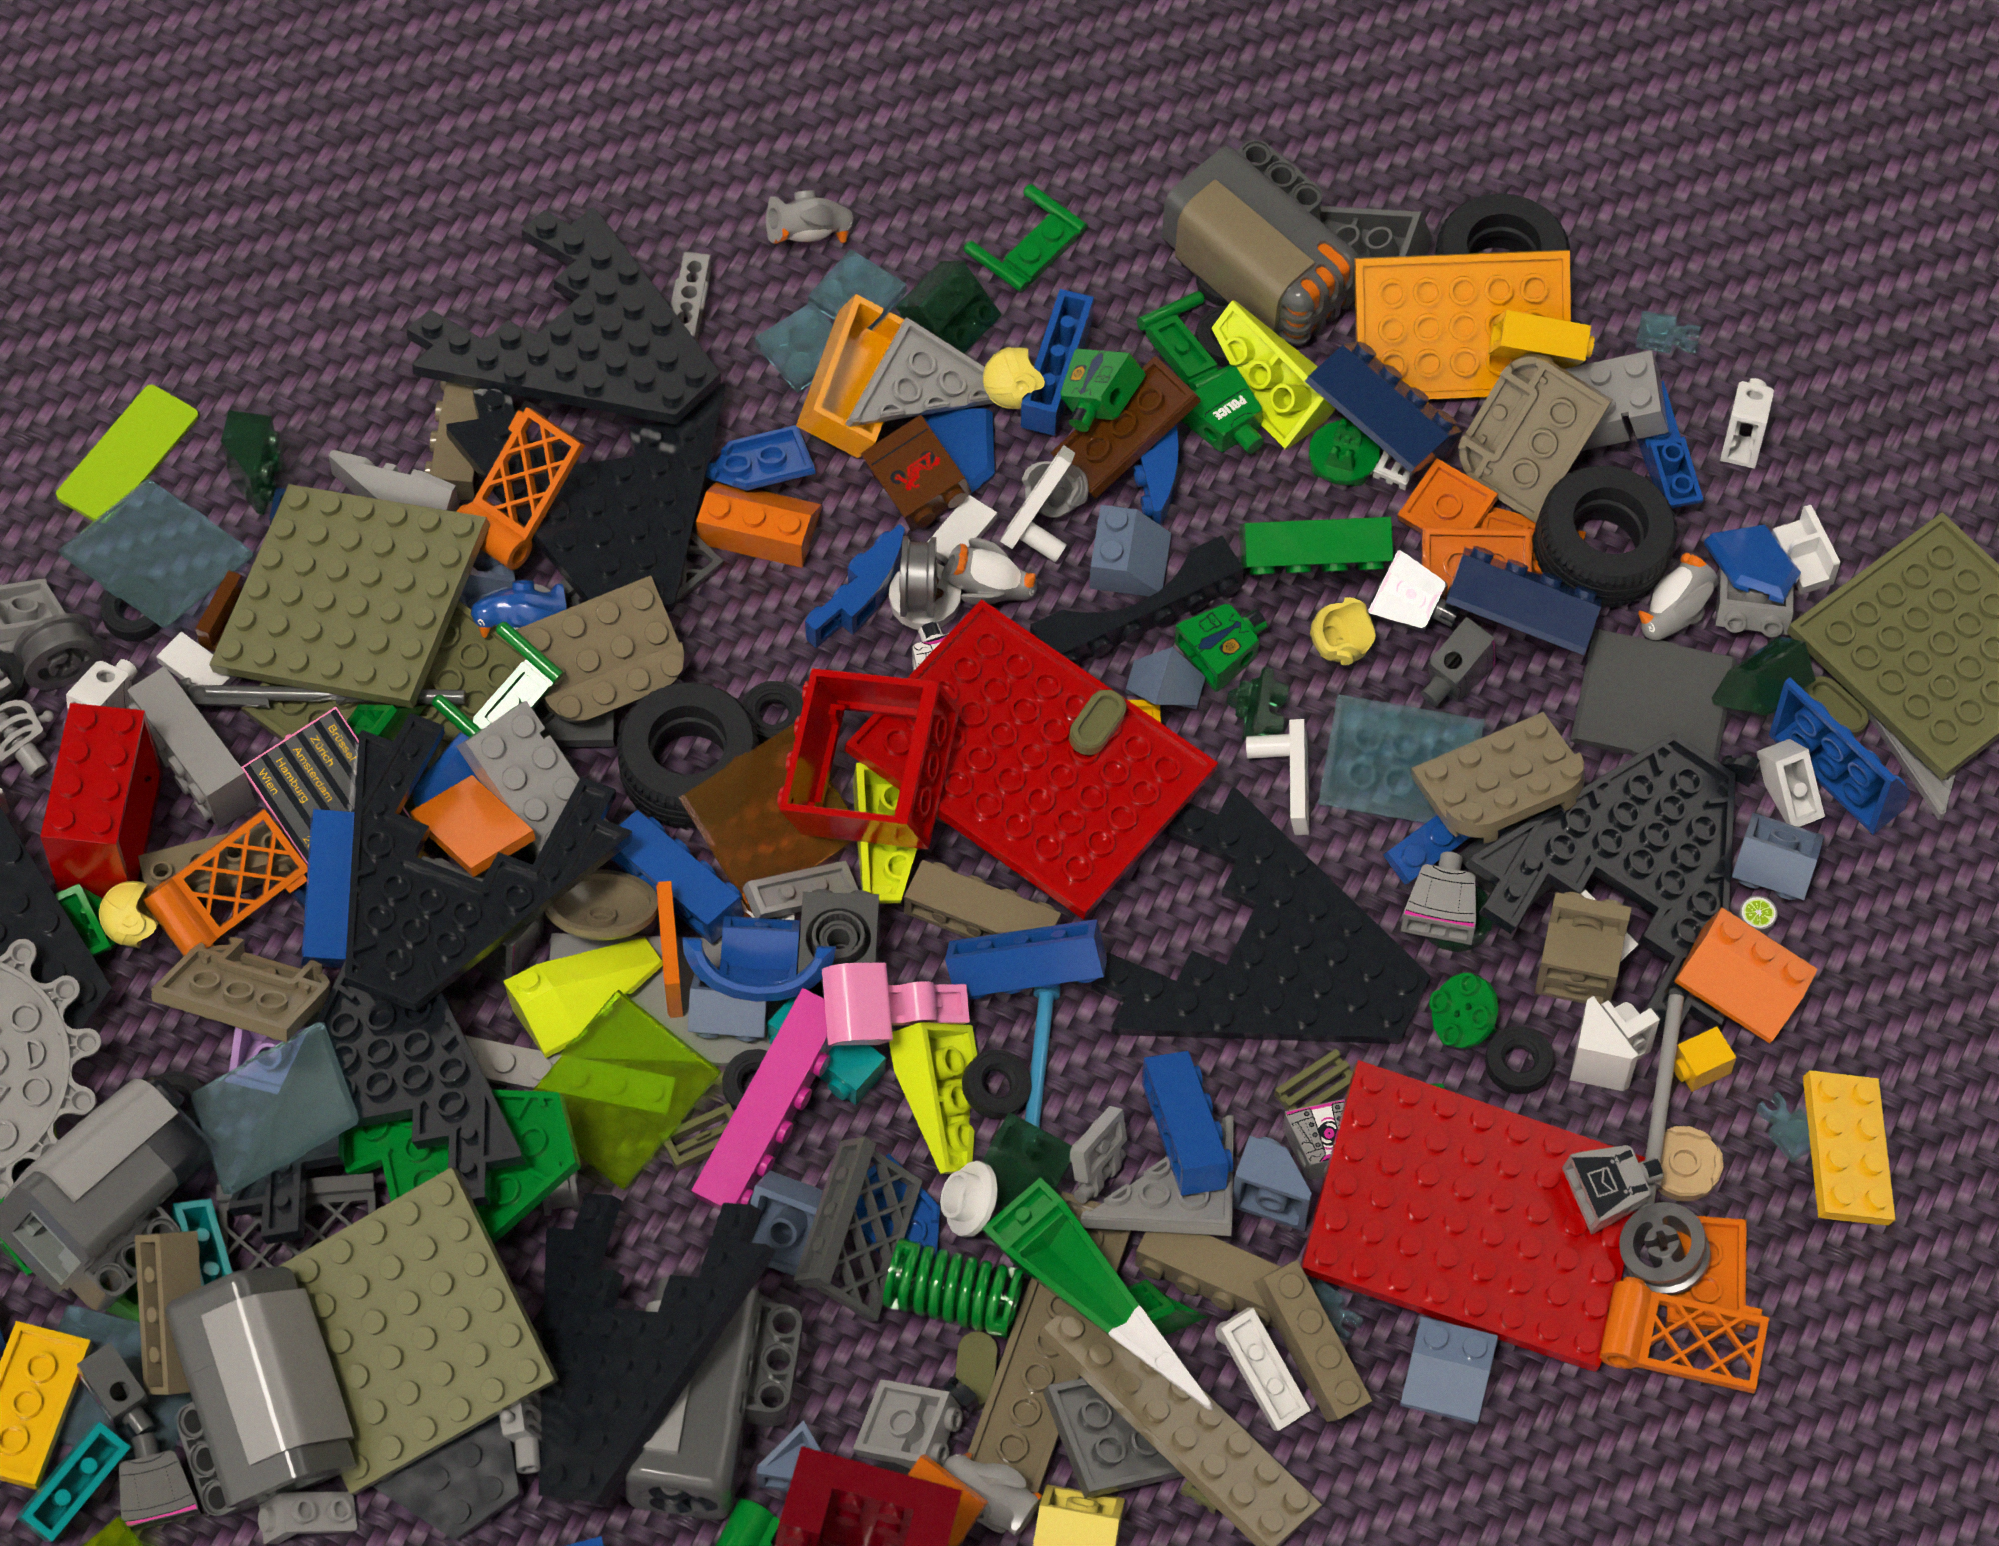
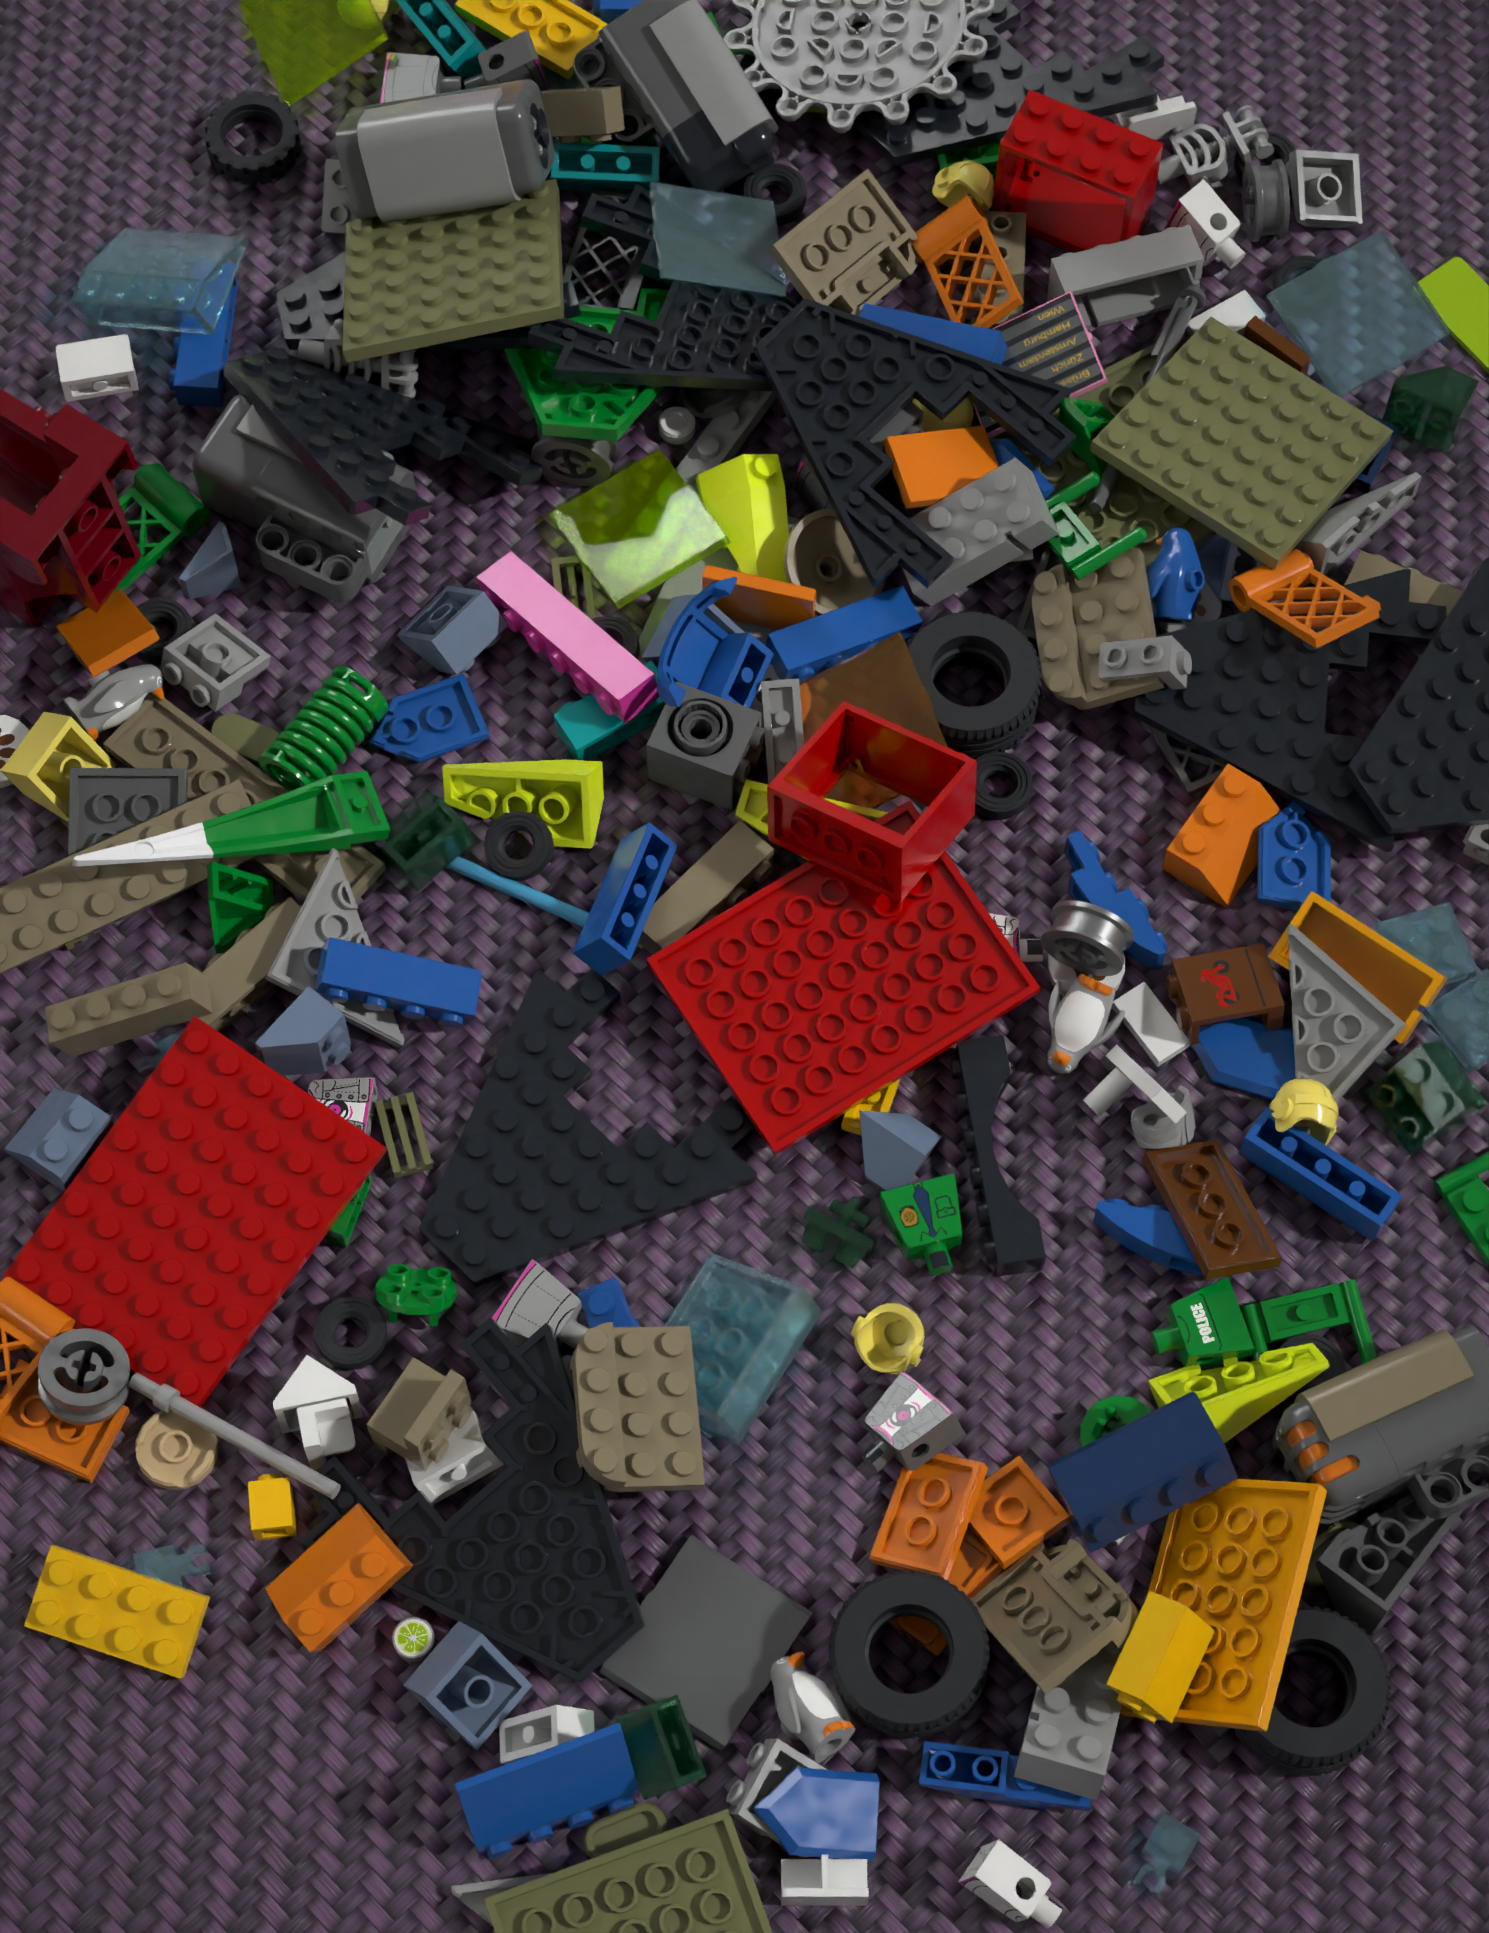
camera: 110 degrees right, 5 degrees up
(634, 594) = (1145, 658): none -> light grey bracket
(838, 1215) = (428, 644): dark grey fence -> none
(864, 1007) = (616, 719): bright pink plate -> none
(962, 1393) = (220, 707): black tile -> none
(969, 1198) = (406, 776): white piece -> none
(1097, 722) = (856, 1045): olive tile -> none
(1098, 1153) = (399, 894): light grey plate -> none
(1099, 385) = (1263, 1188): green torso -> none
(1129, 552) = (1065, 1169): sand blue slope -> none
(1262, 1368) = (134, 959): white piece -> none
(1296, 746) = (771, 1248): white piece -> none
(1316, 542) = (1000, 1343): green brick -> none
(1460, 663) = (810, 1443): dark grey torso -> none
(1524, 599) = (850, 1524): dark blue slope -> none
(1610, 1183) = (163, 1342): torso -> none
(1743, 767) = (587, 1691): black tile -> none

